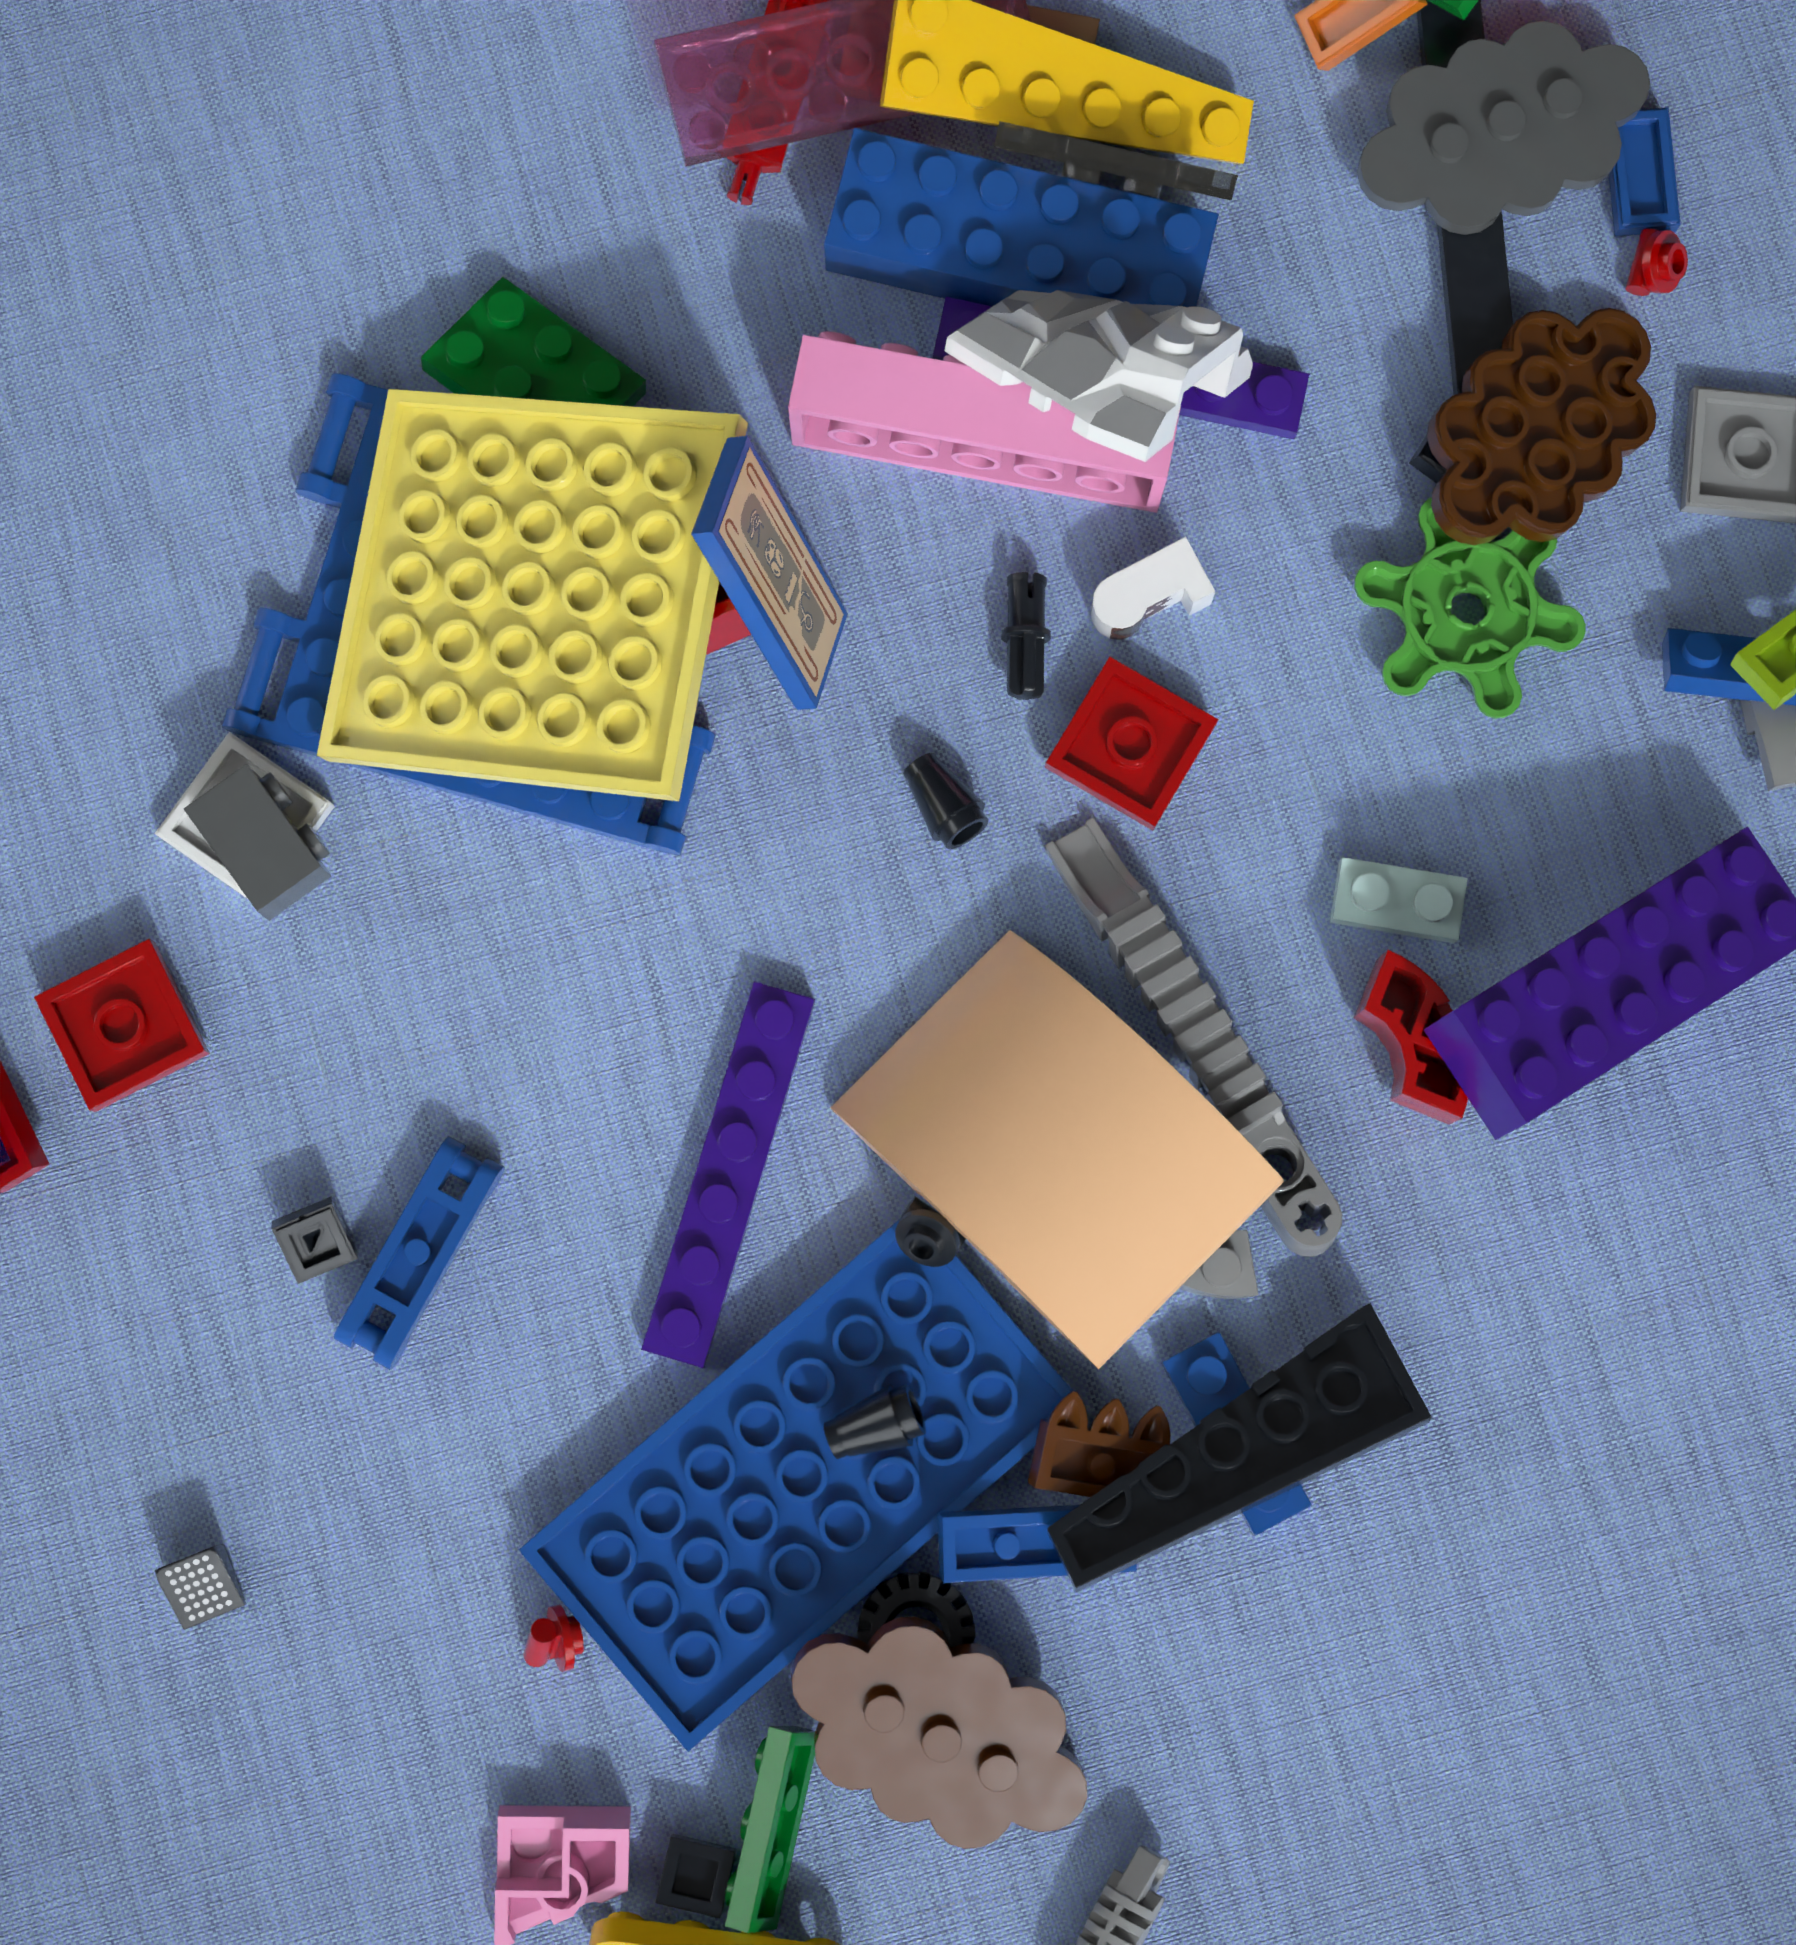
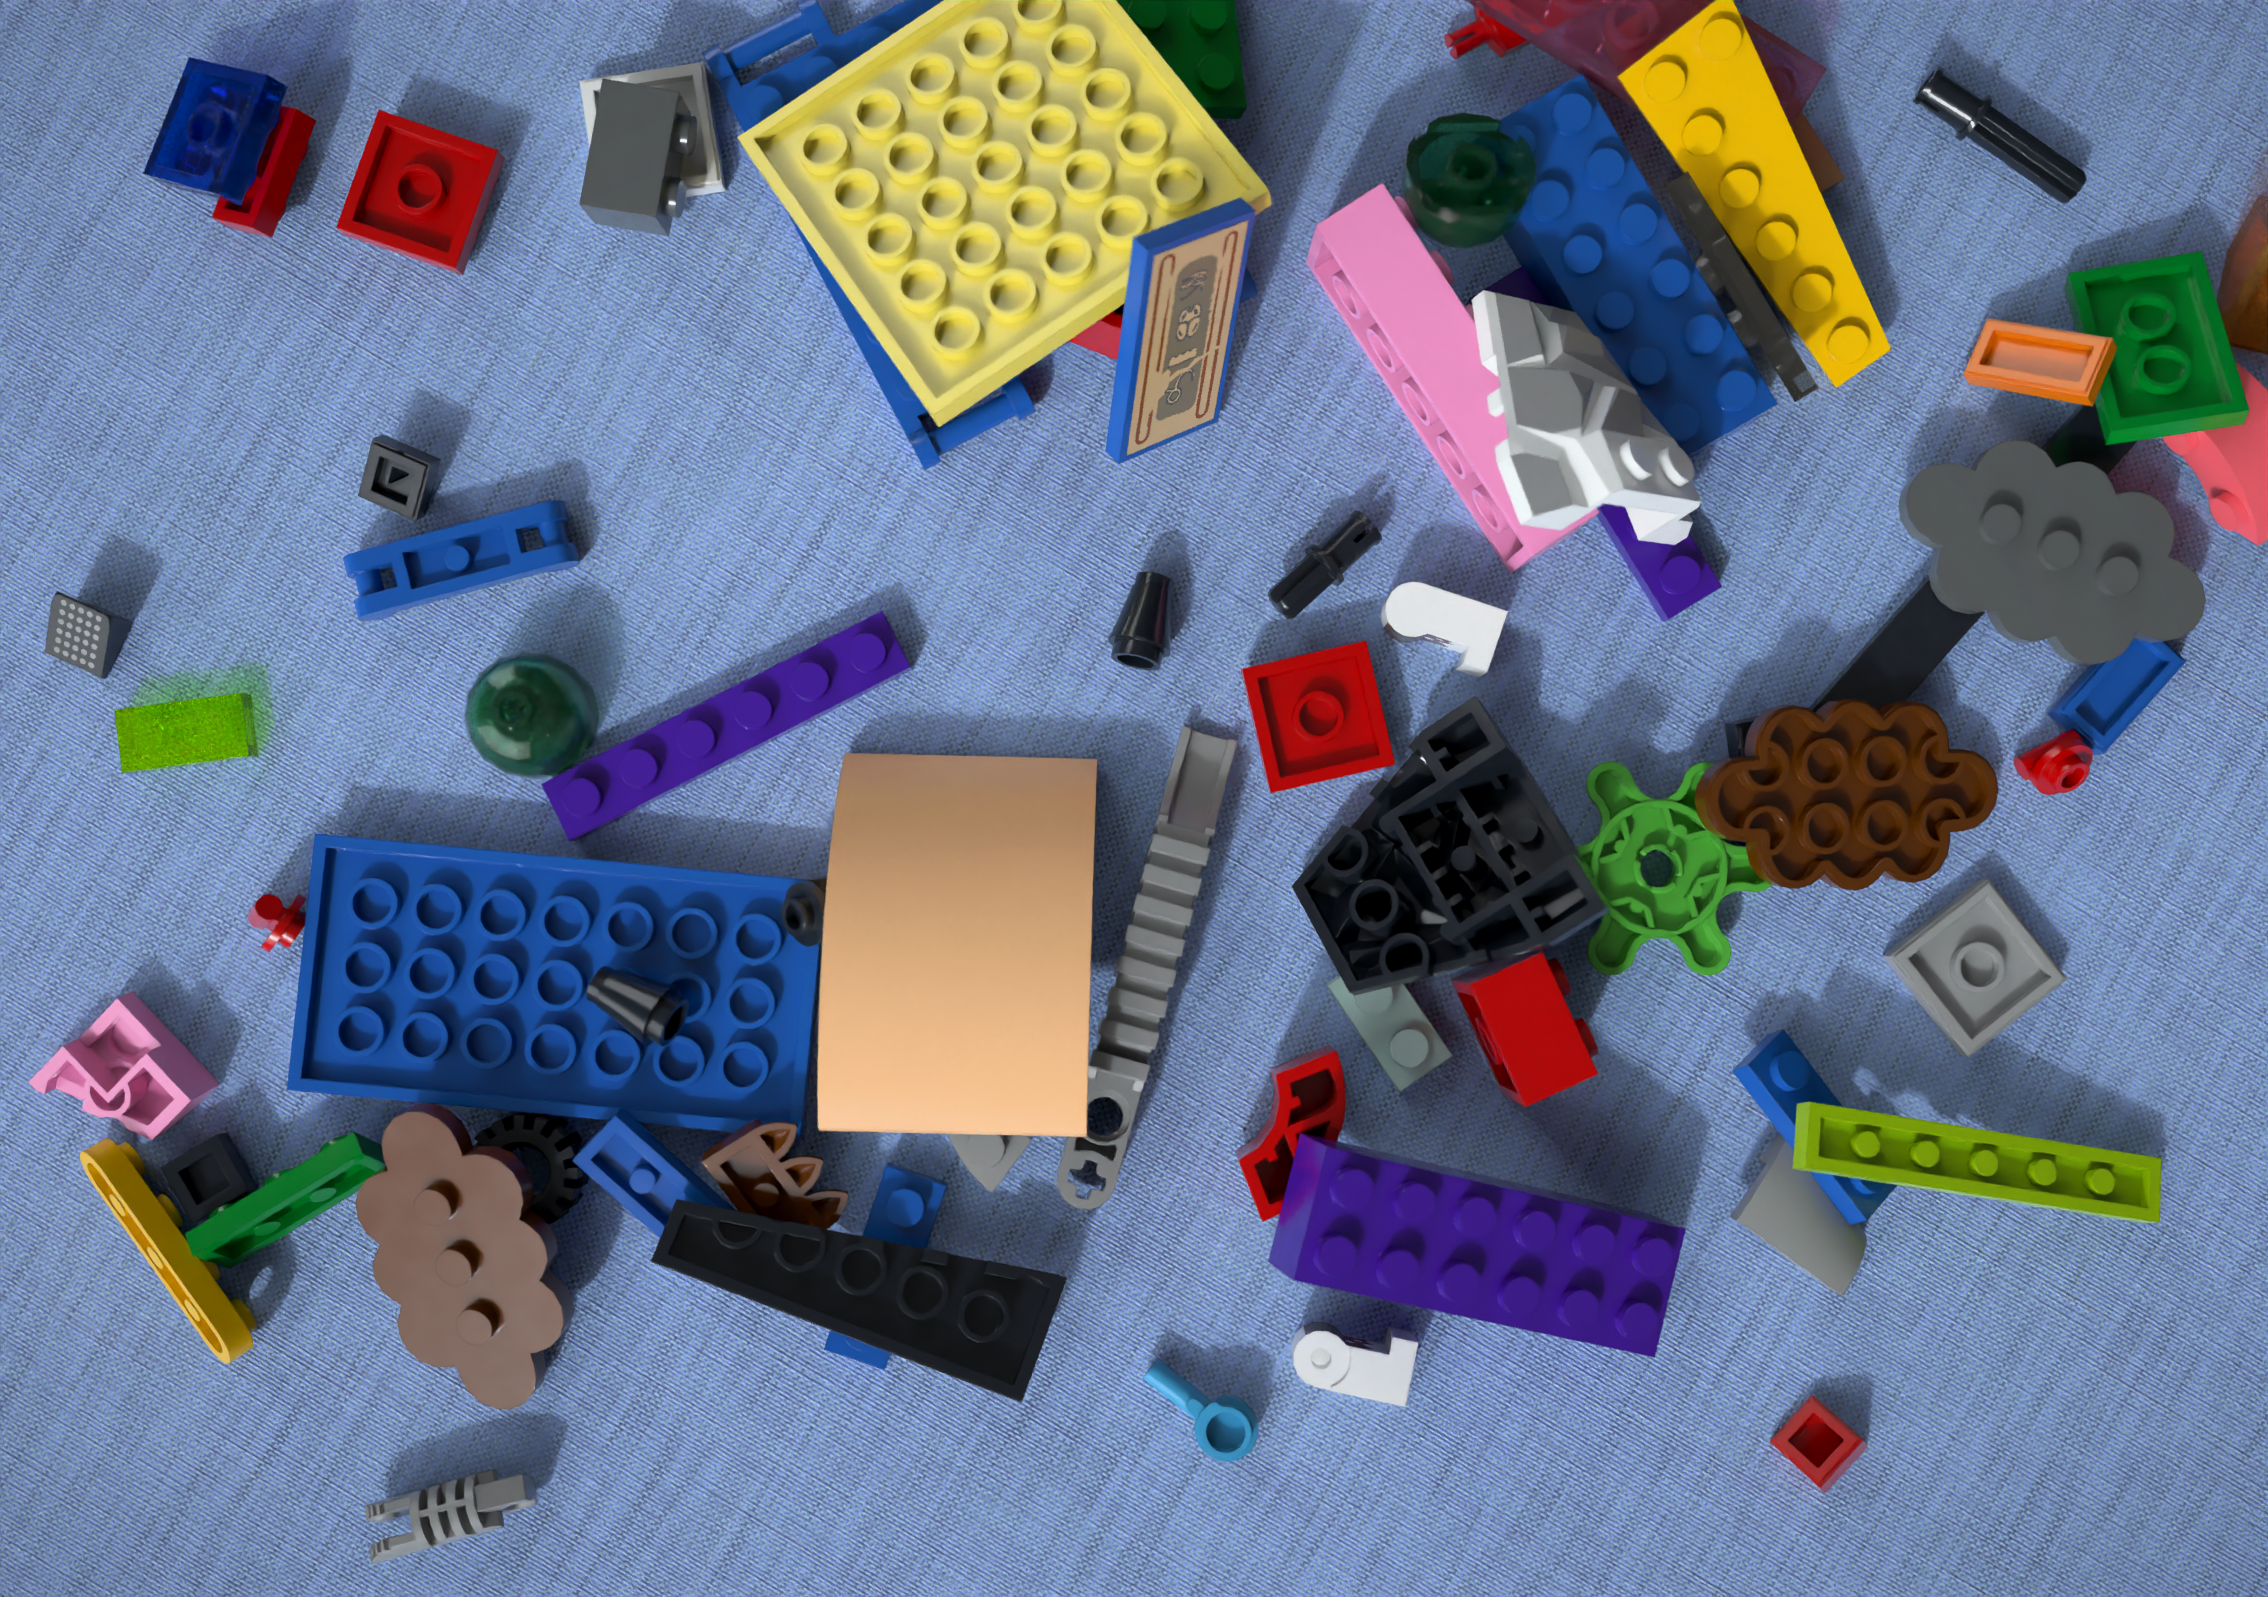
camera: 40 degrees right, 5 degrees up
(347, 1580) = (186, 733): none -> clear neon green plate
(613, 1318) = (557, 718): none -> clear green cylinder
(856, 275) = (1467, 180): none -> clear green cylinder
(1327, 749) = (1448, 864): none -> black wedge
(1495, 801) = (1527, 1026): none -> red brick
(1583, 1296) = (1223, 1425): none -> dark azure plate
(1627, 1160) = (1355, 1364): none -> white leg

